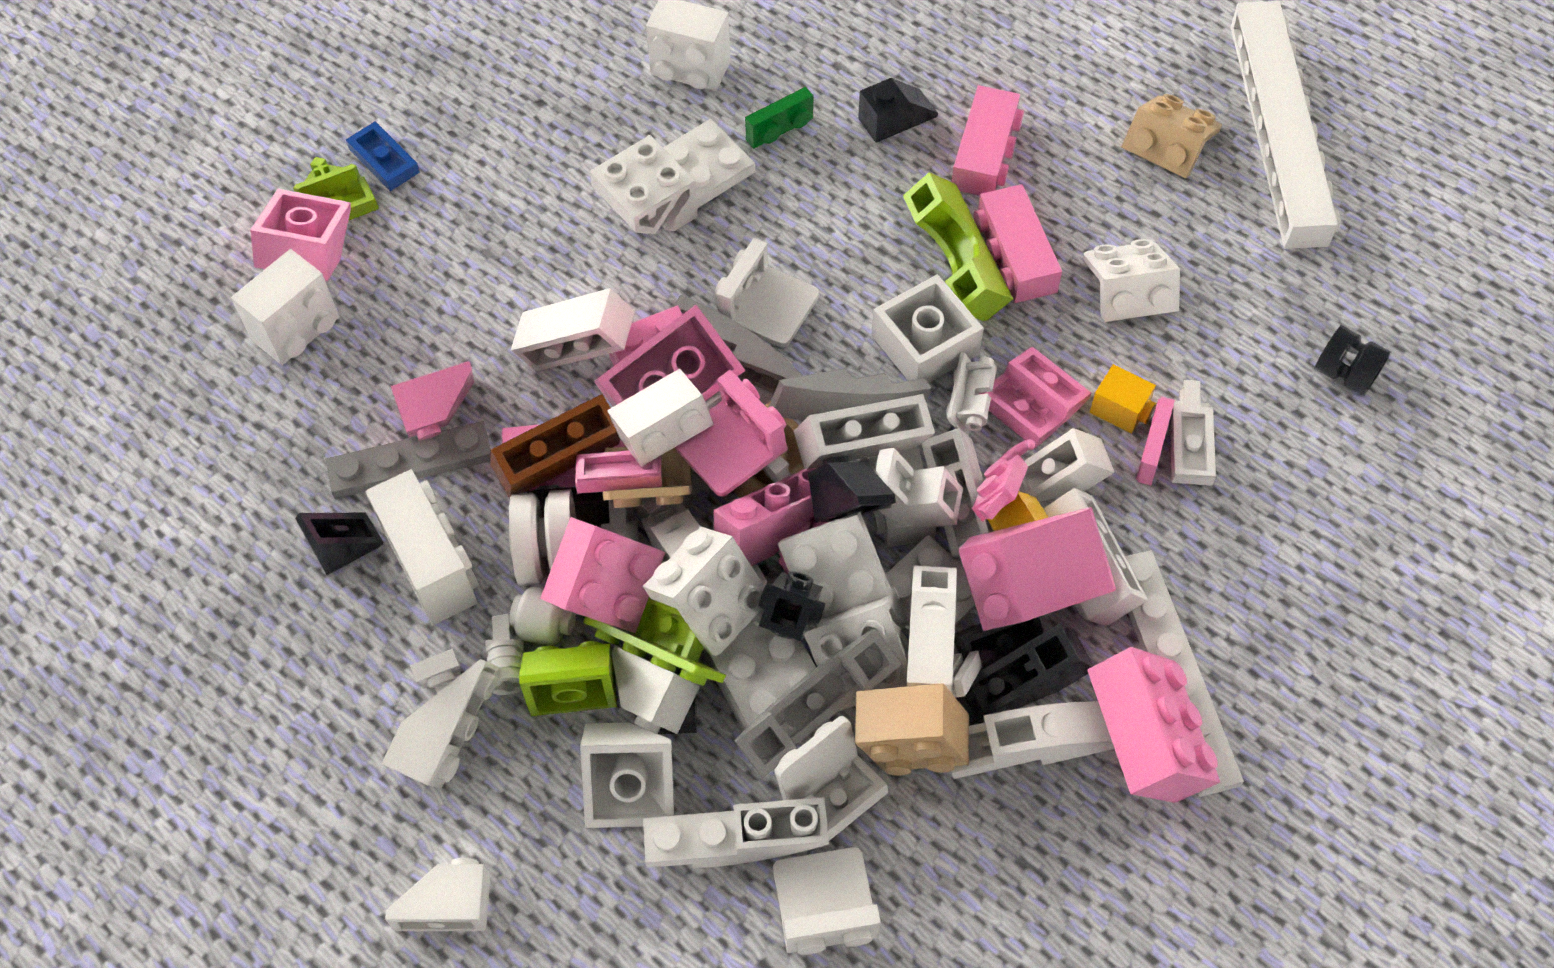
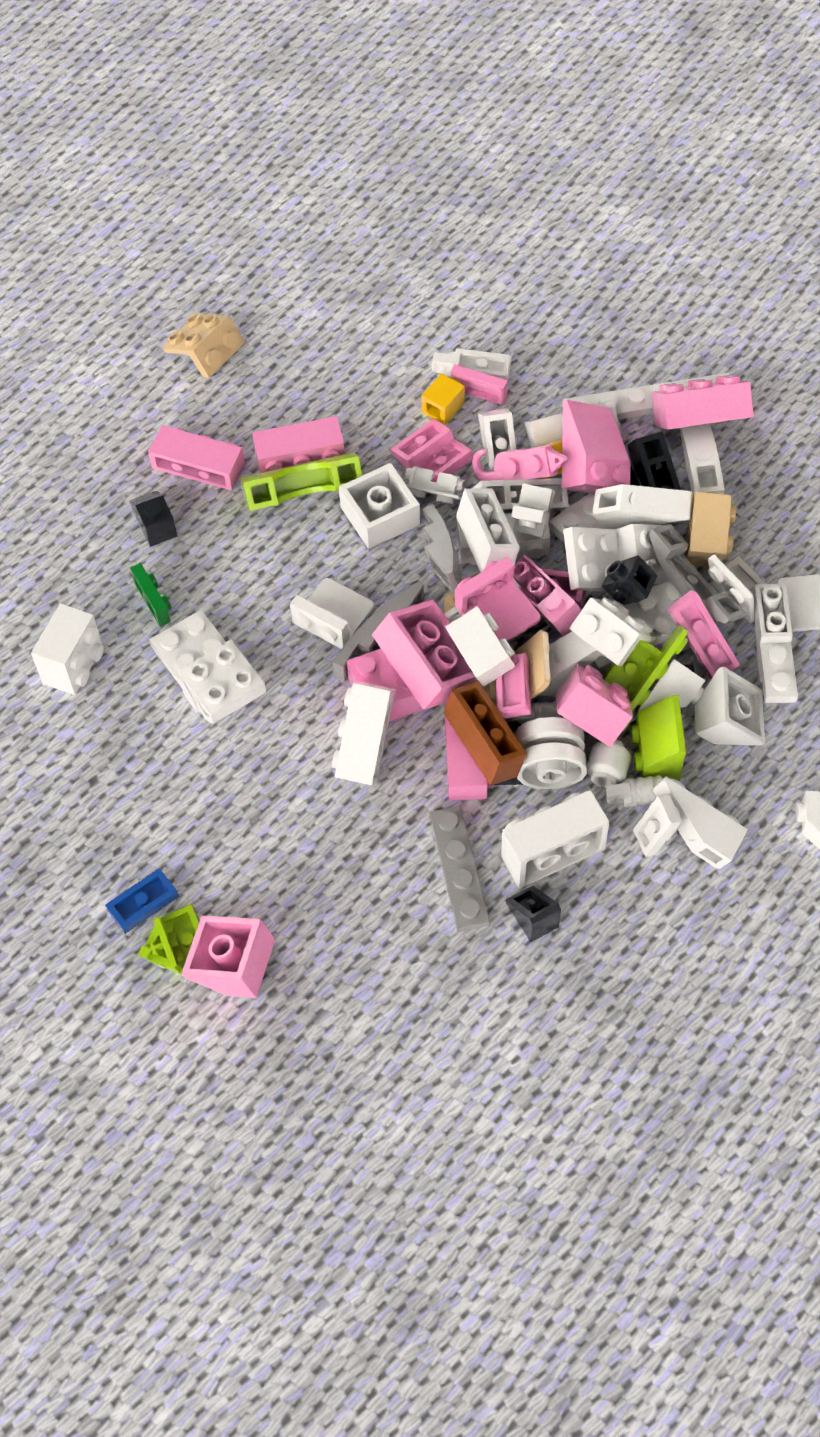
camera: 85 degrees left, 0 degrees up
(286, 307) = (316, 954): white brick -> none
(432, 399) = (415, 838): bright pink slope -> none
(726, 717) = (703, 634): none -> bright pink plate
(845, 489) = (545, 536): black slope -> none
(1134, 280) = (336, 377): white bracket -> none
(1284, 126) = (205, 275): white brick -> none
(1365, 366) = (423, 268): black wheel -> none

